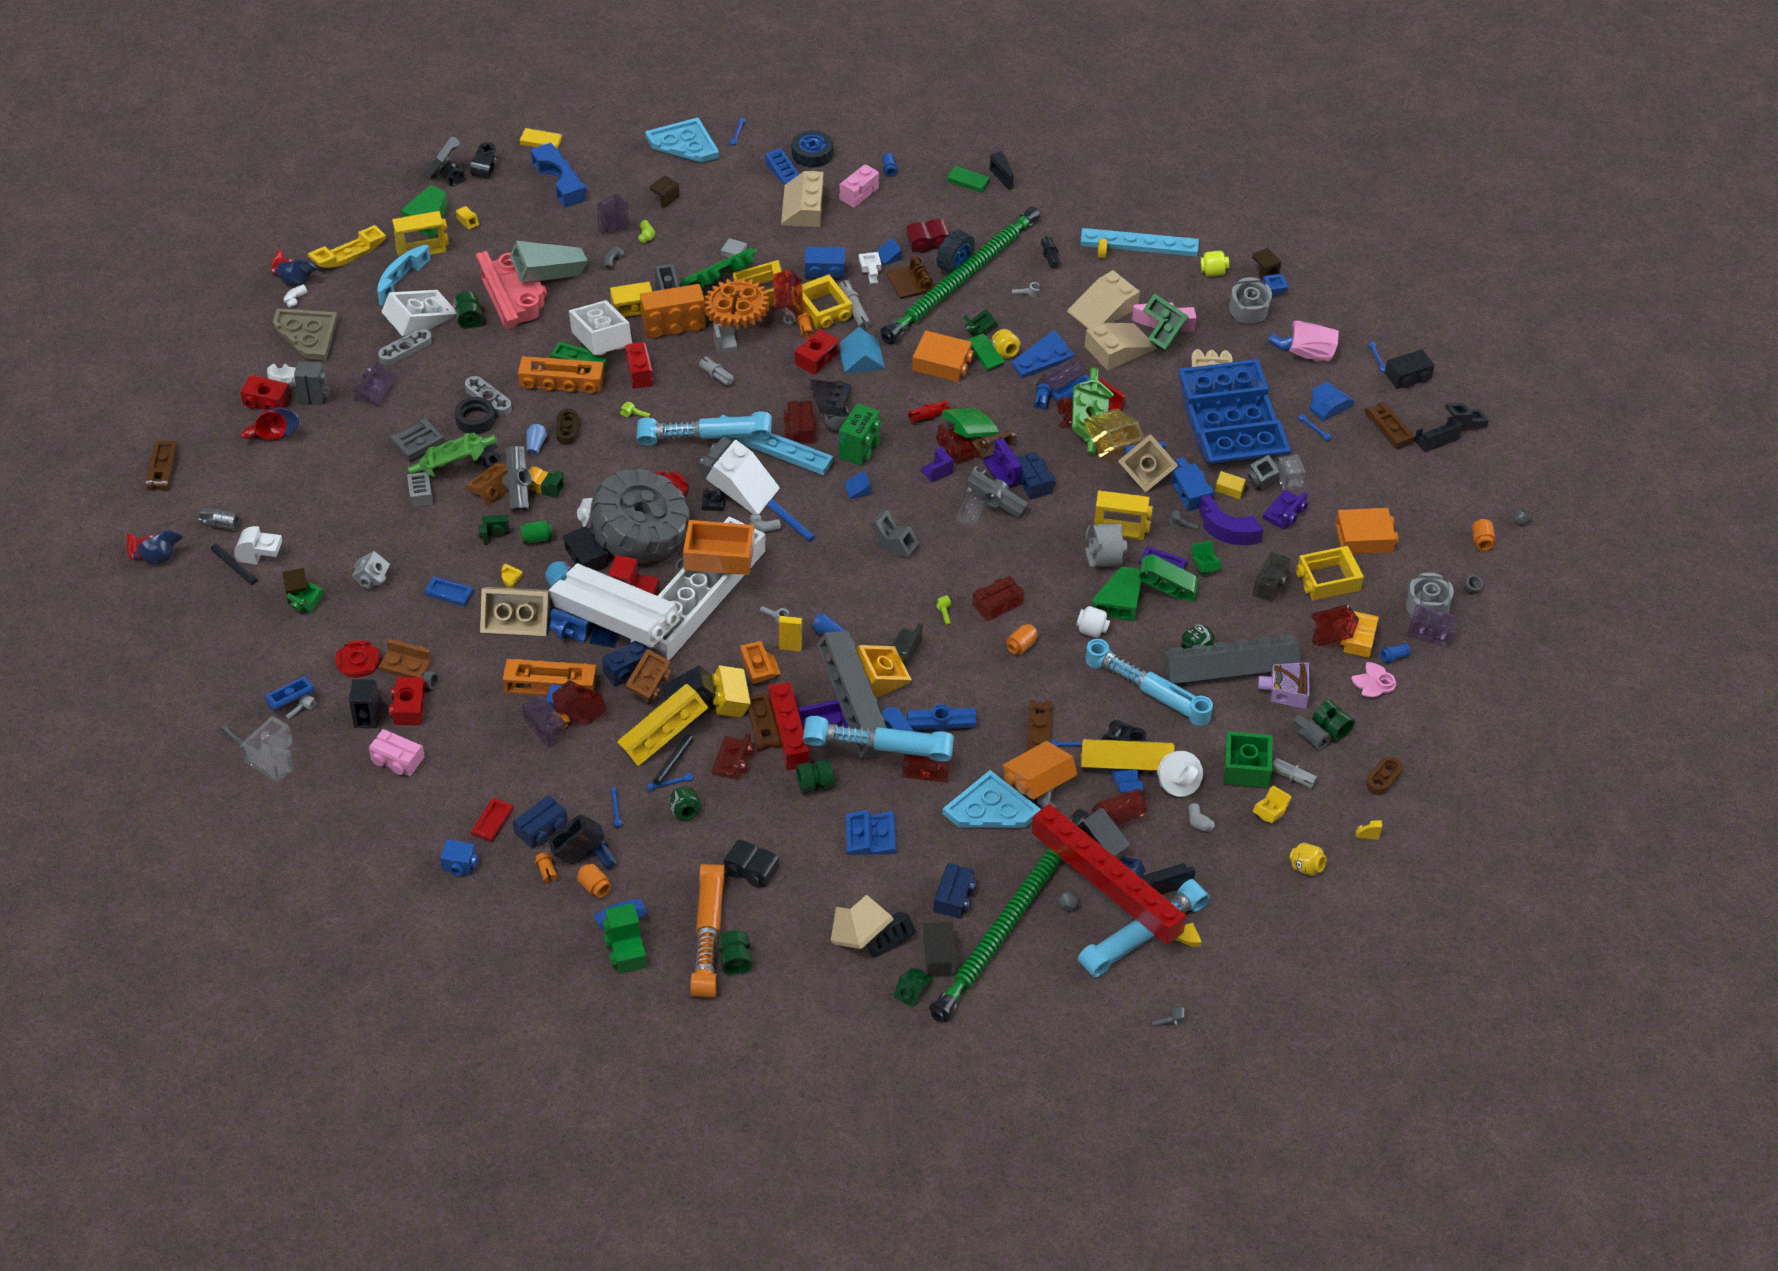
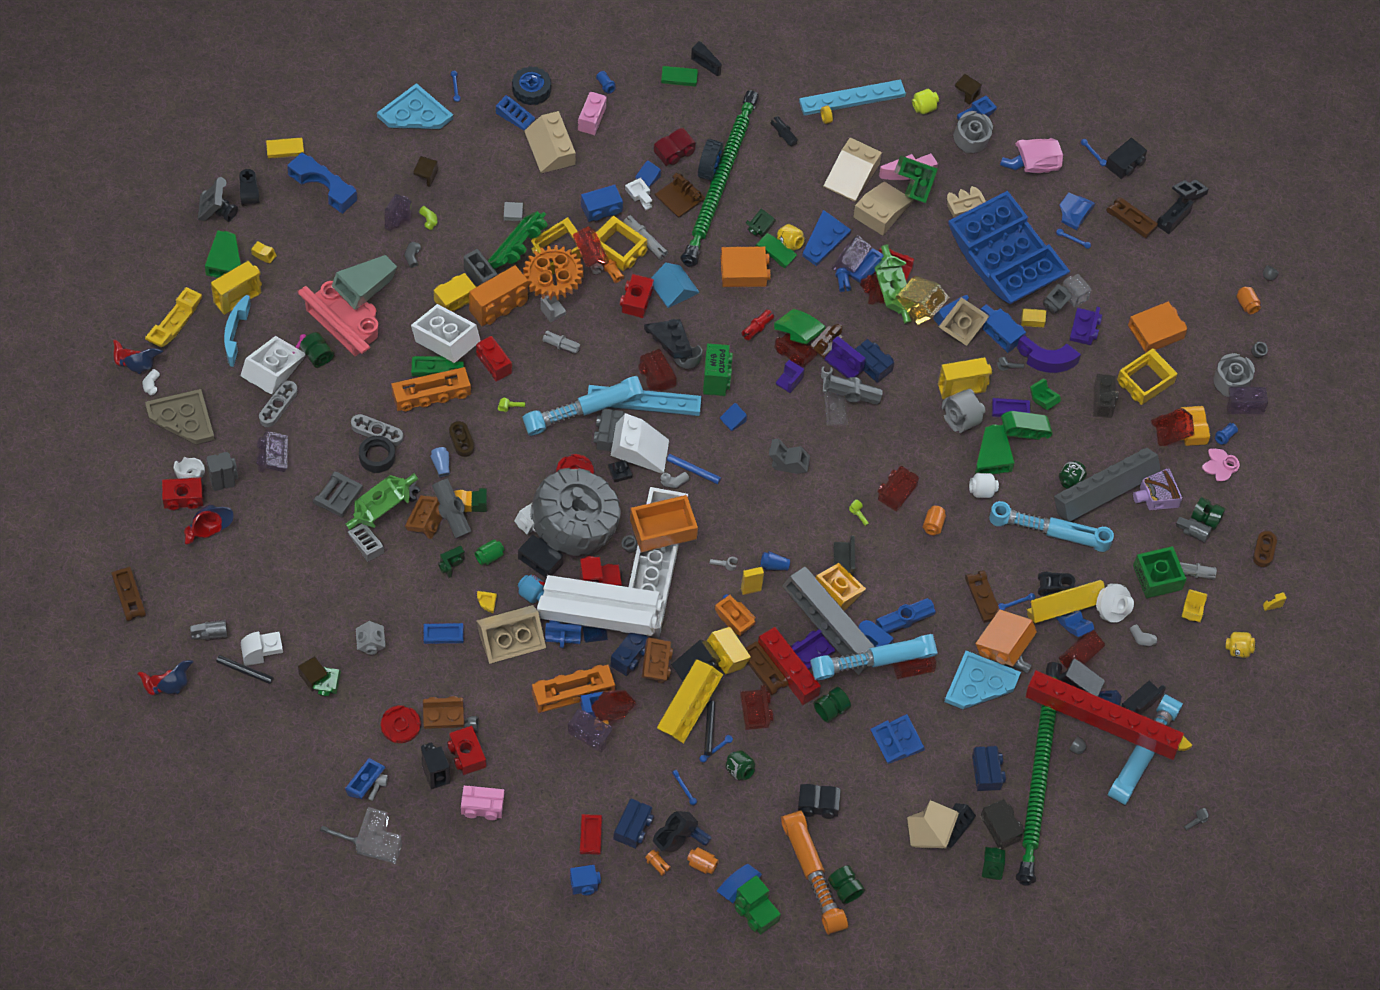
camera: 25 degrees left, 10 degrees up
(1032, 291) = (784, 175): light grey hand -> none

